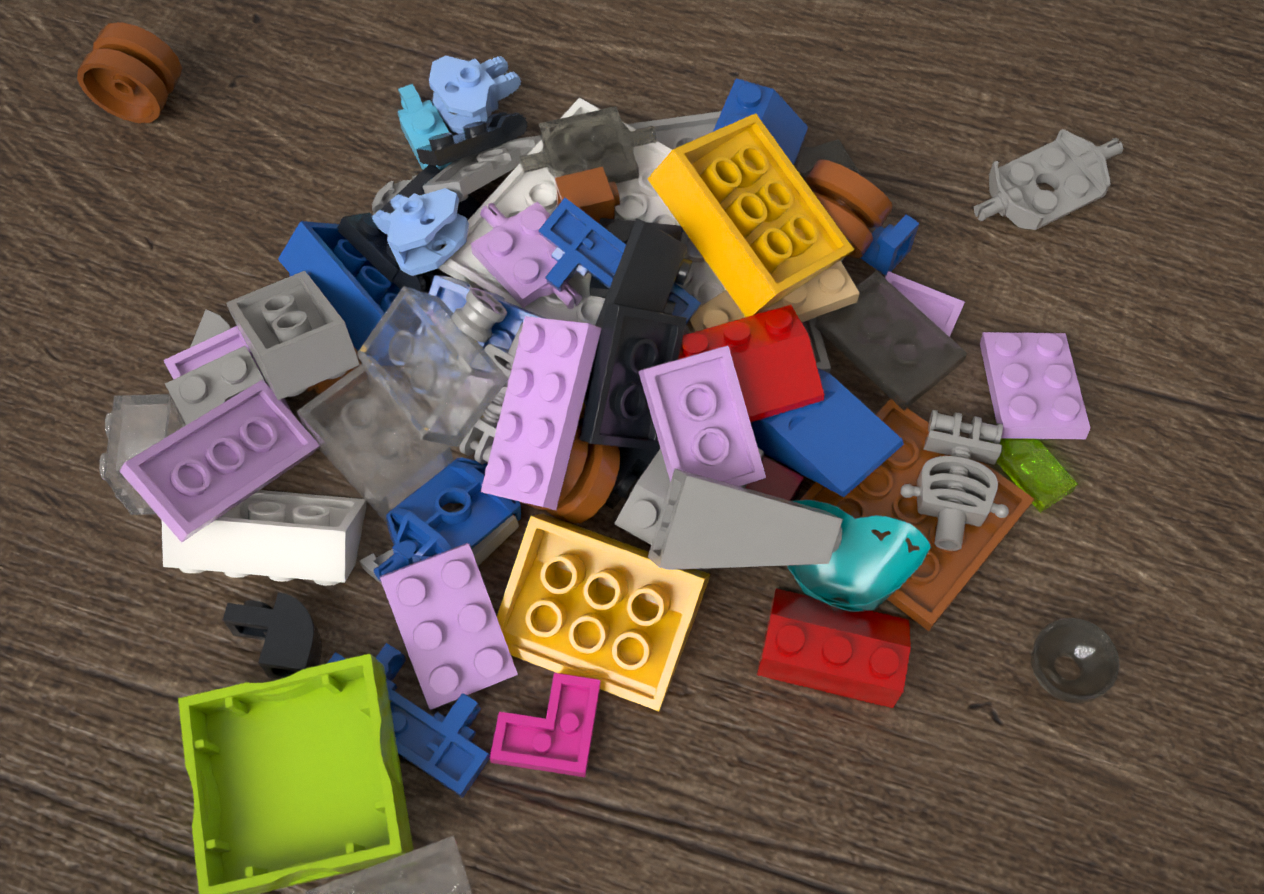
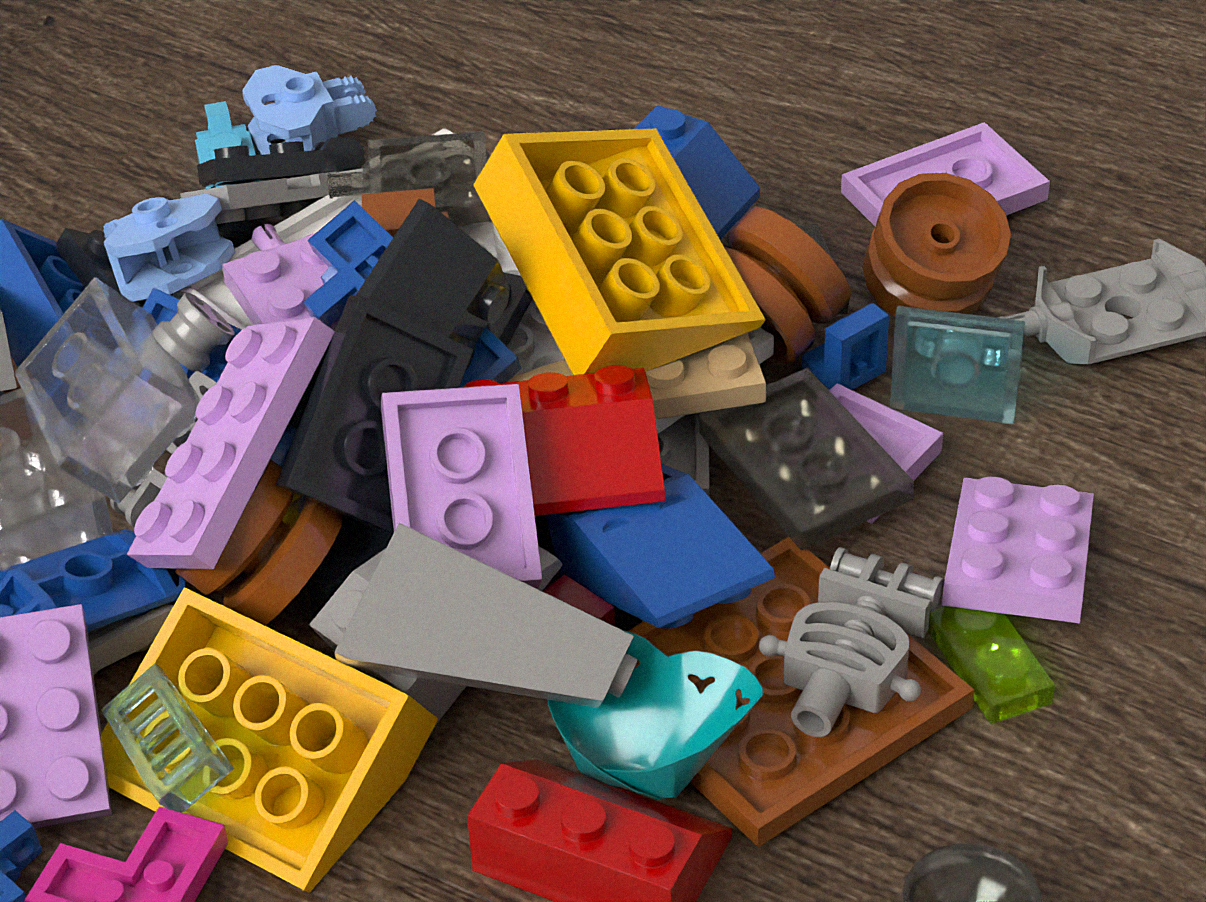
camera: 15 degrees right, 20 degrees down
(567, 623) = (196, 772): none -> clear light blue slope
(911, 98) = (970, 154): none -> lavender plate
(929, 159) = (936, 245): none -> dark orange wheel
(962, 246) = (957, 364): none -> clear light blue slope

